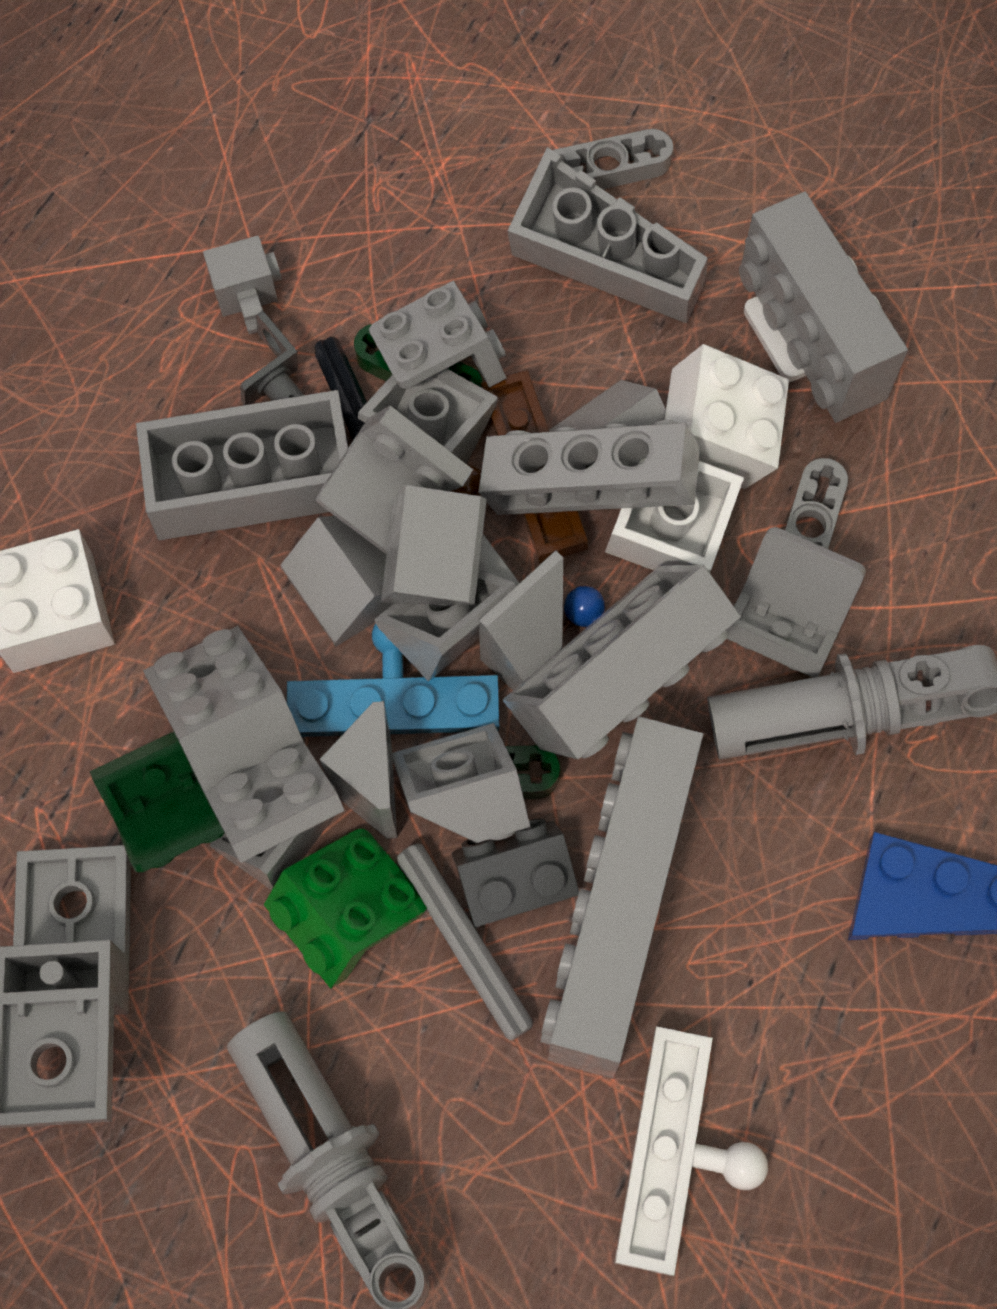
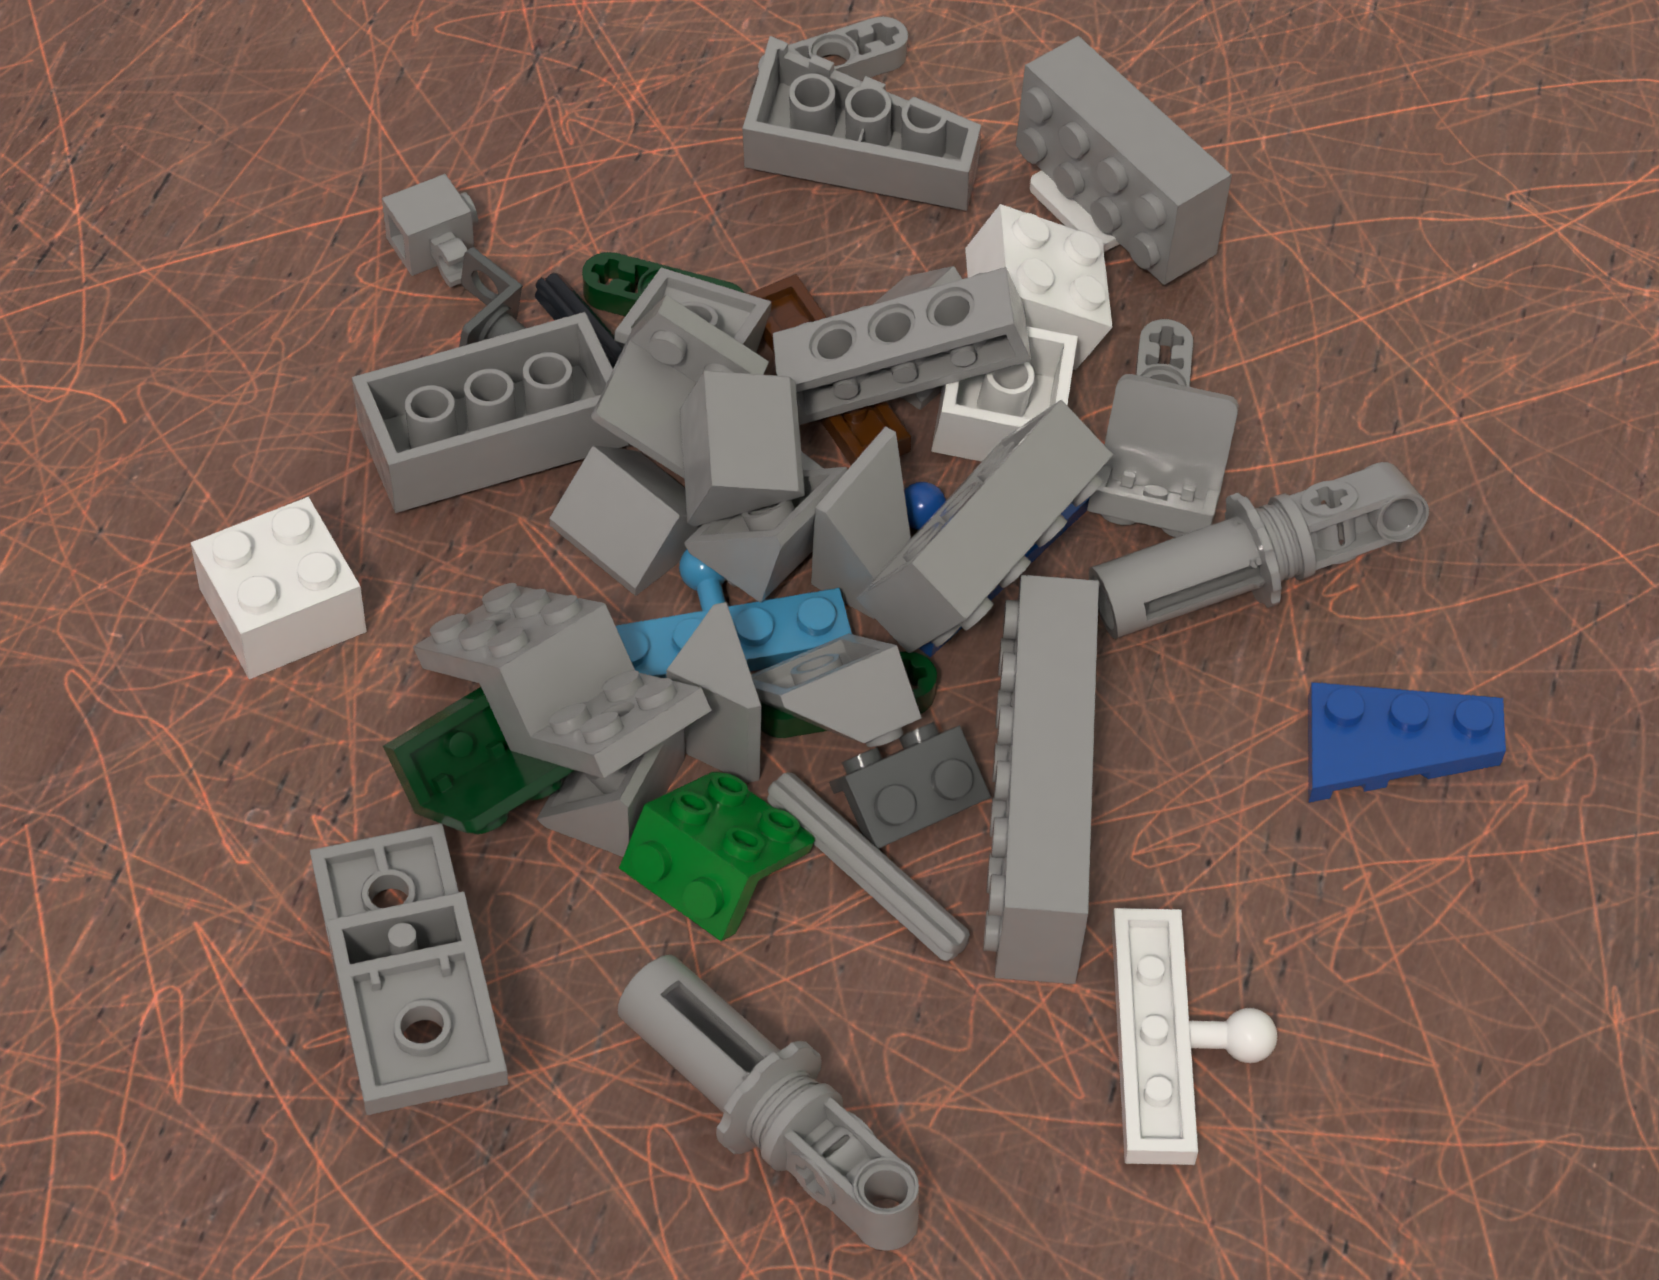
camera: 15 degrees left, 15 degrees down
(436, 335) = (684, 244): light grey bracket -> none

